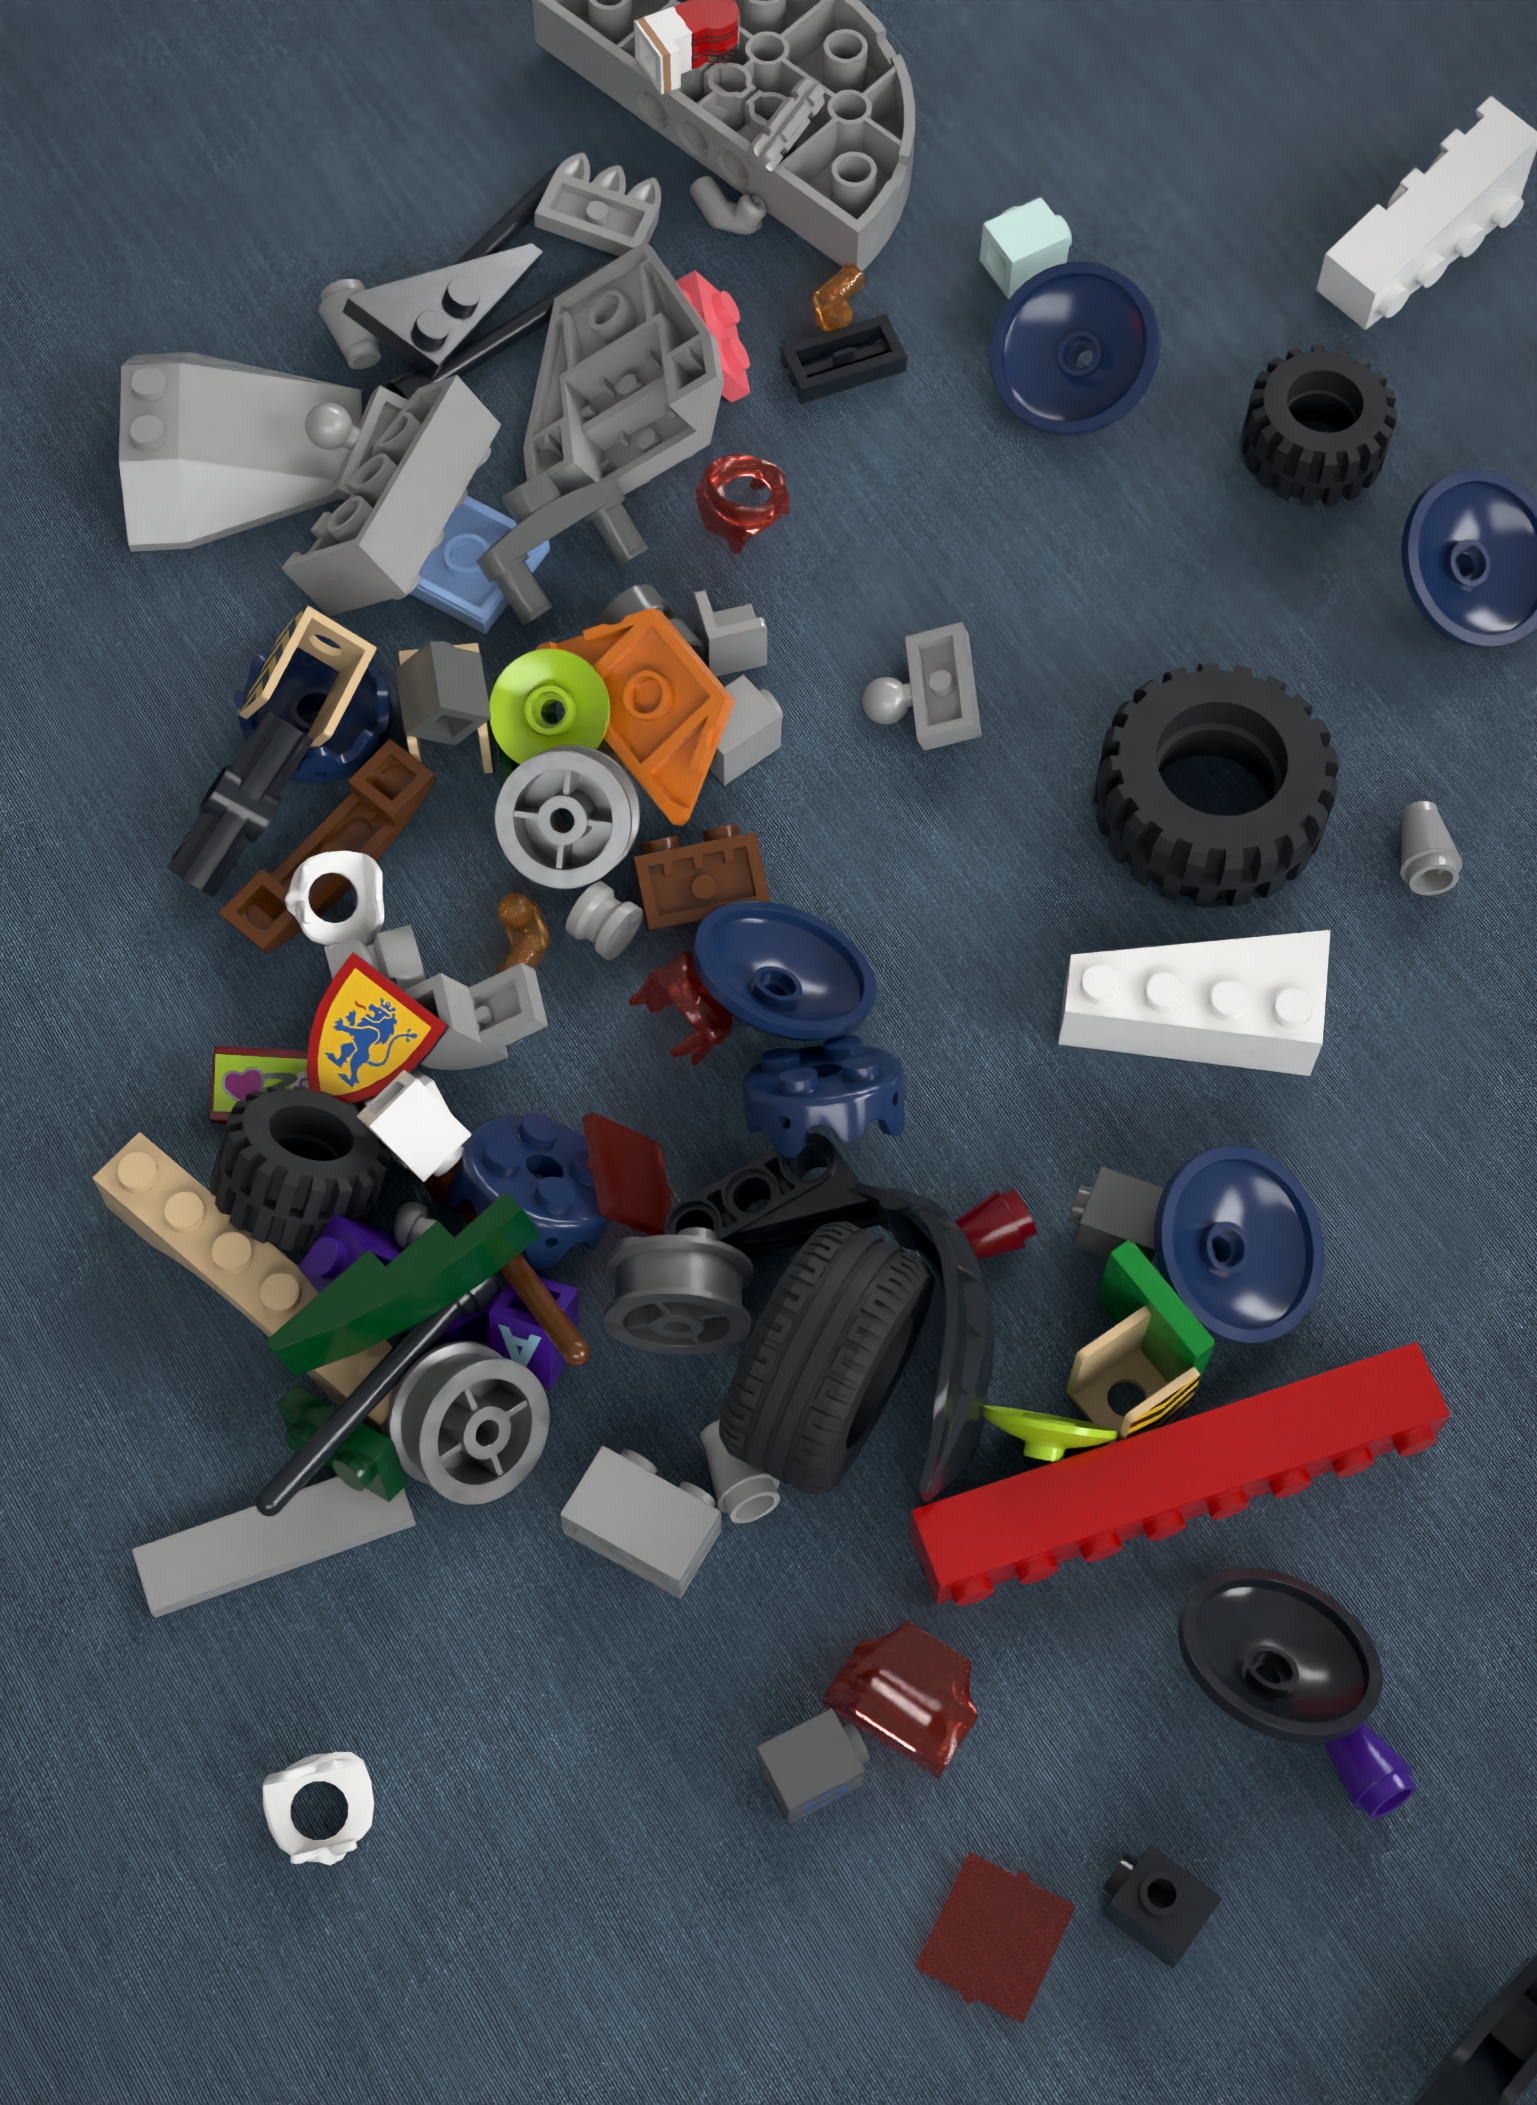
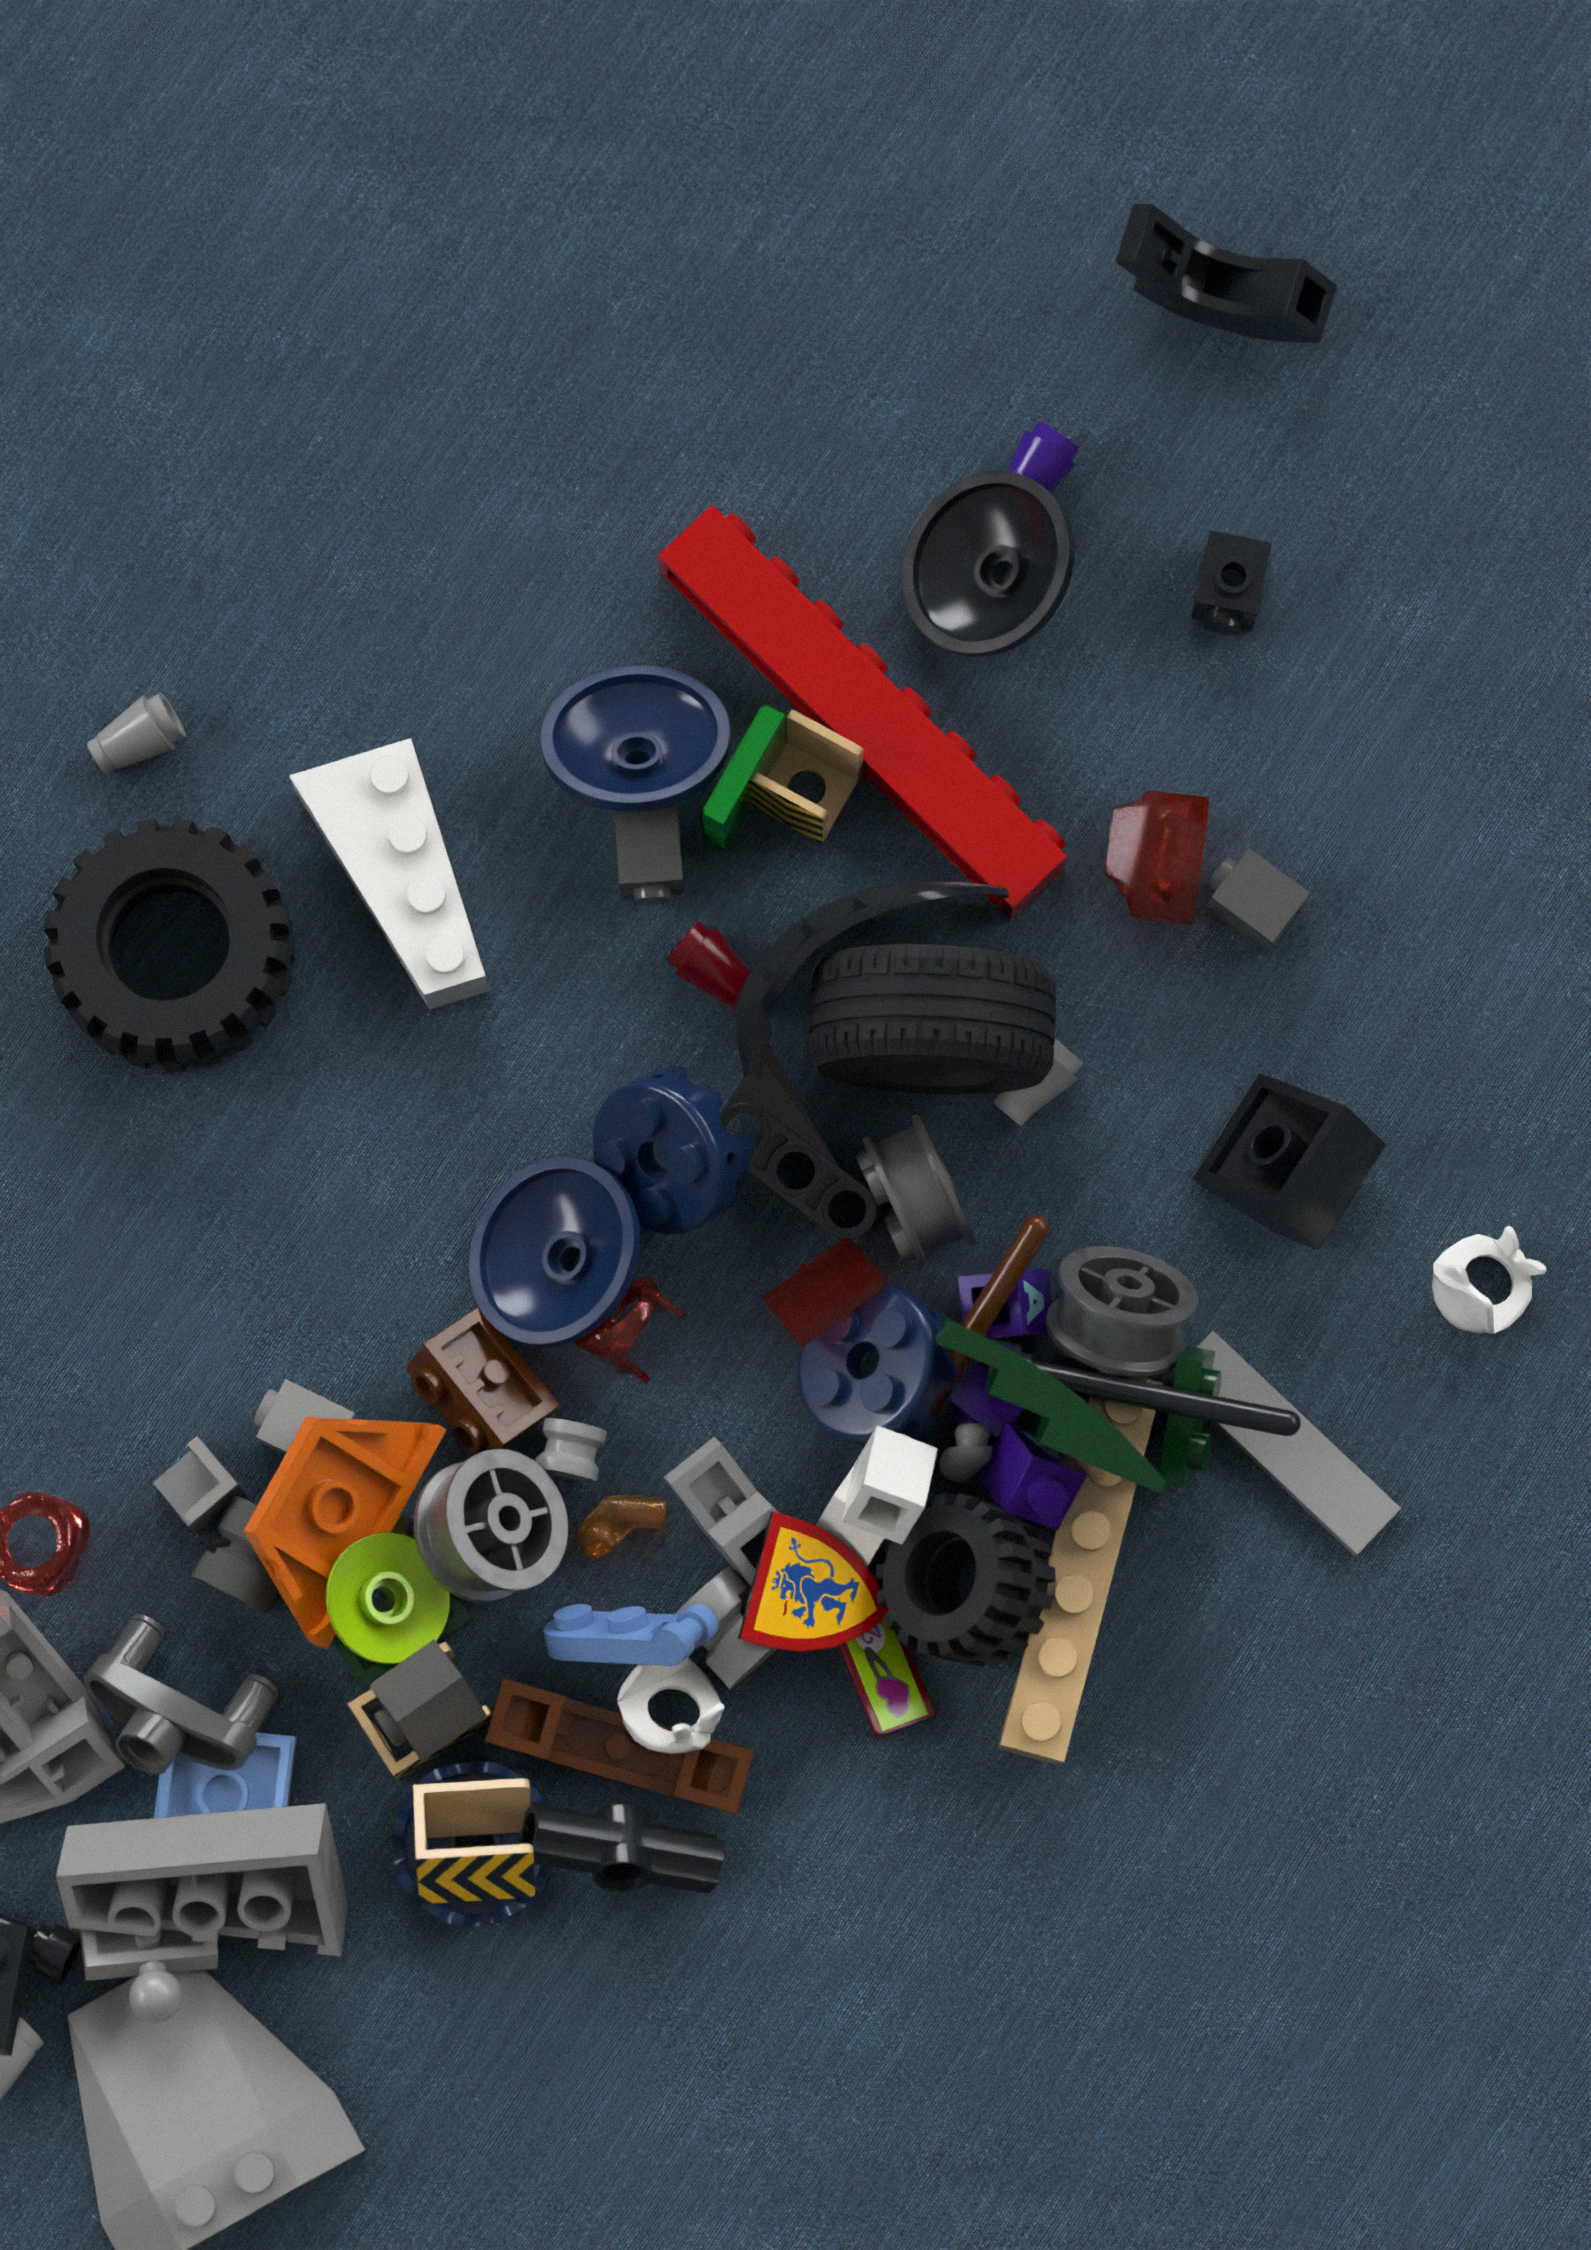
camera: 115 degrees left, 15 degrees up
(413, 881) = (628, 1634): none -> medium blue plate
(534, 1668) = (1290, 1160): none -> black slope
(642, 1519) = (1121, 1135): light grey brick -> none
(938, 689) = (168, 1257): light grey plate -> none
(995, 1937) = (1312, 704): clear red piece -> none
(1047, 1434) = (879, 827): lime dish -> none

